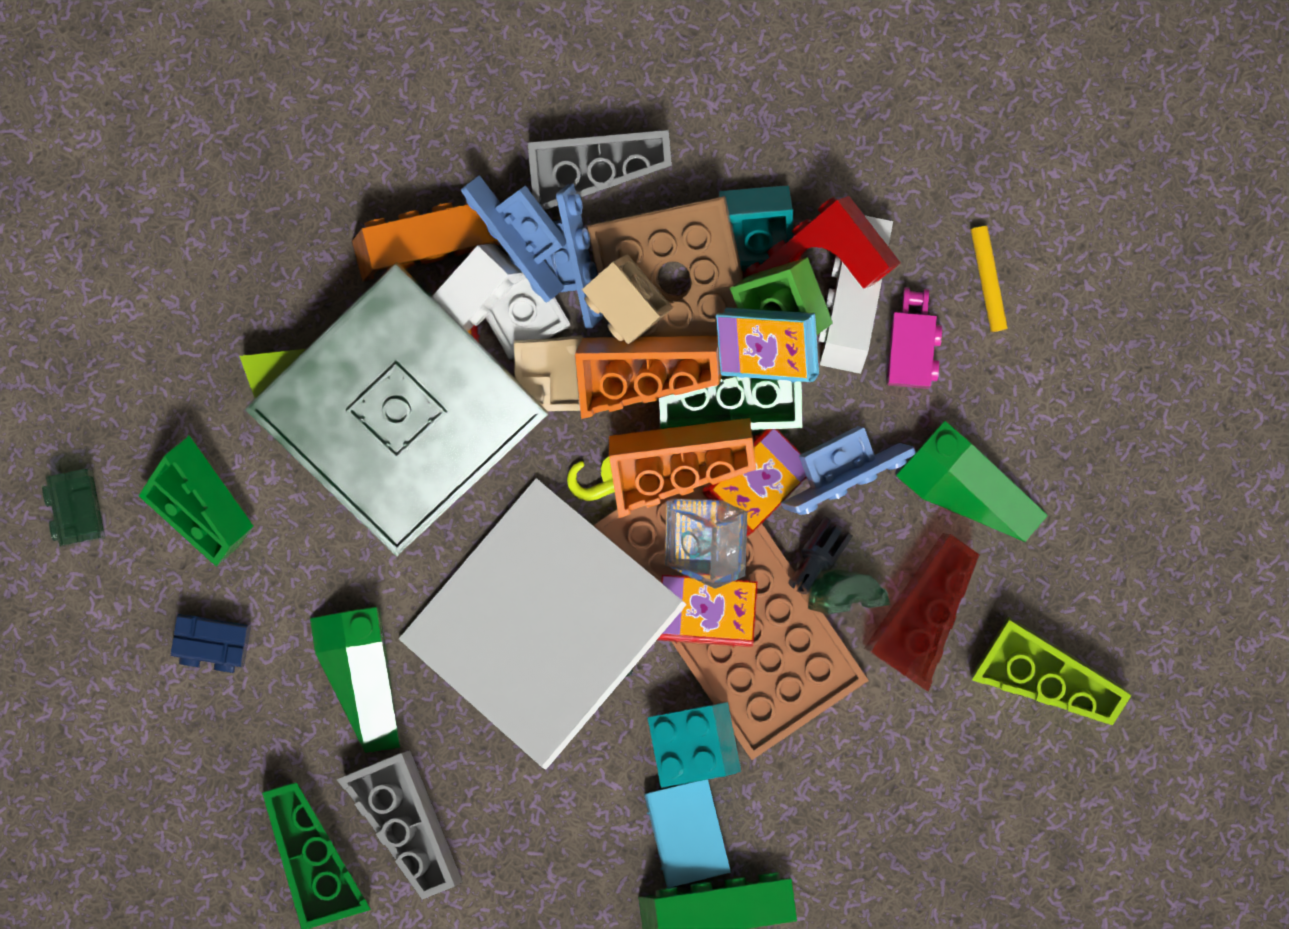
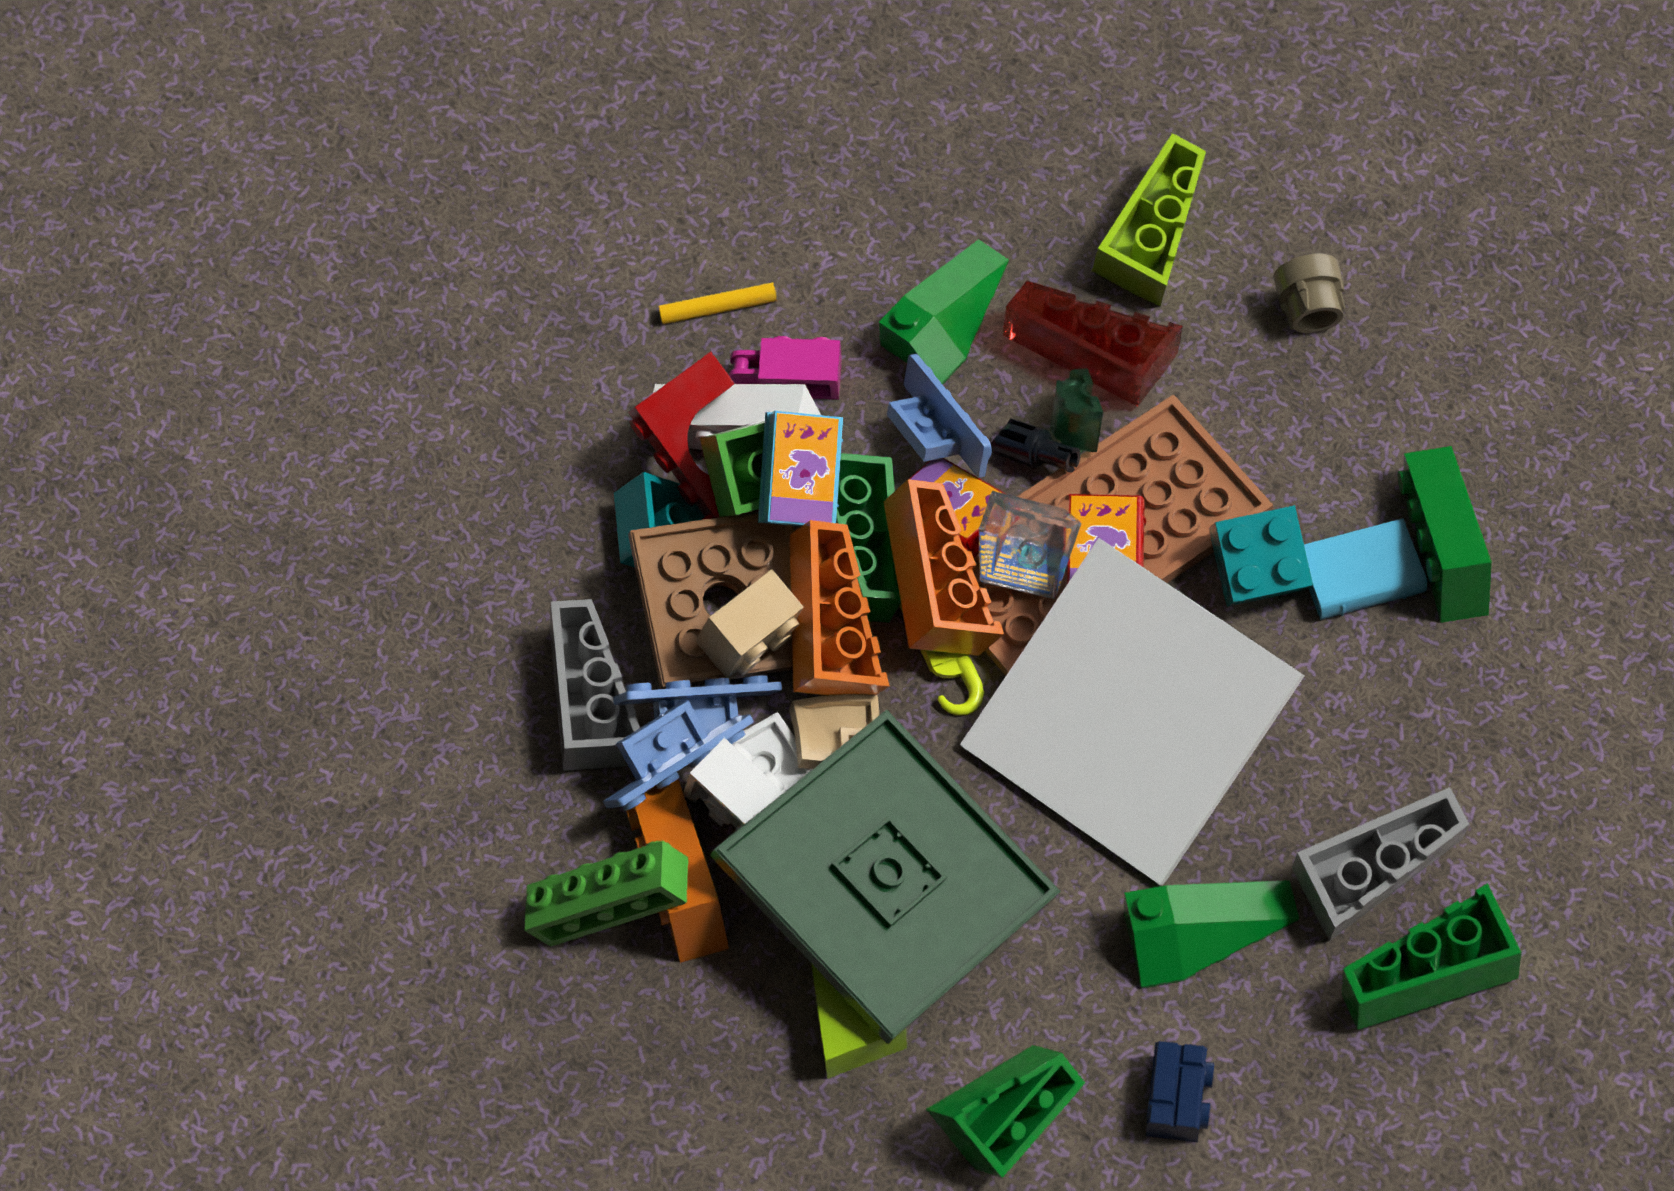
camera: 90 degrees left, 25 degrees down
(390, 178) = (606, 893): none -> bright green brick
(964, 811) = (1311, 292): none -> dark tan piece

